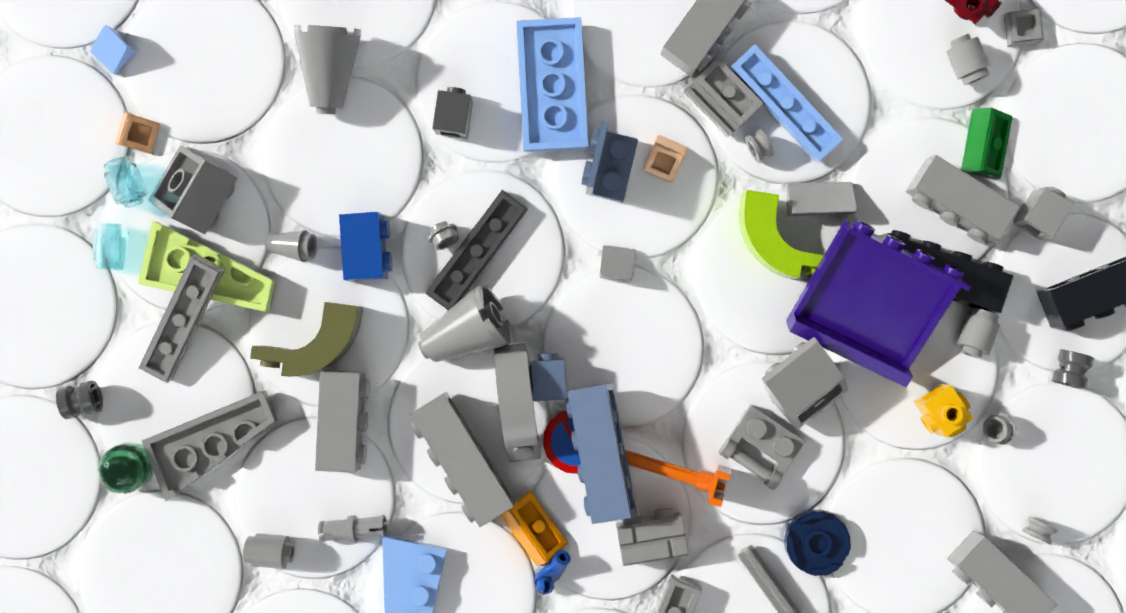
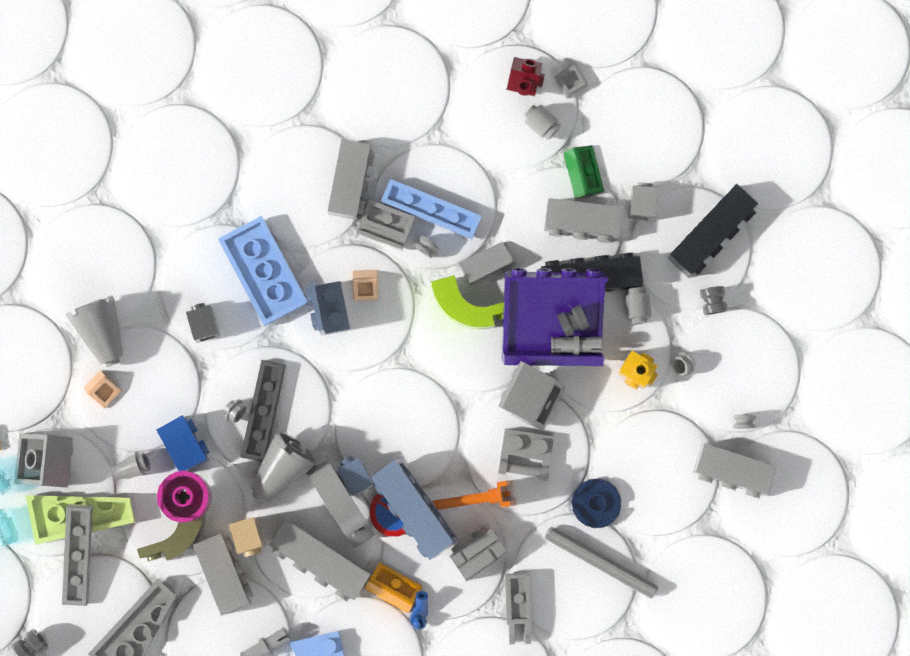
camera: 30 degrees left, 5 degrees down
(300, 137) = (102, 389): none -> light nougat slope
(315, 318) = (175, 484): none -> dark pink brick
(389, 392) = (248, 536): none -> tan brick
(617, 263) = (365, 373): light grey slope -> none
(886, 346) = (576, 344): none -> light grey pin
(897, 316) = (572, 321): none -> dark grey wheel

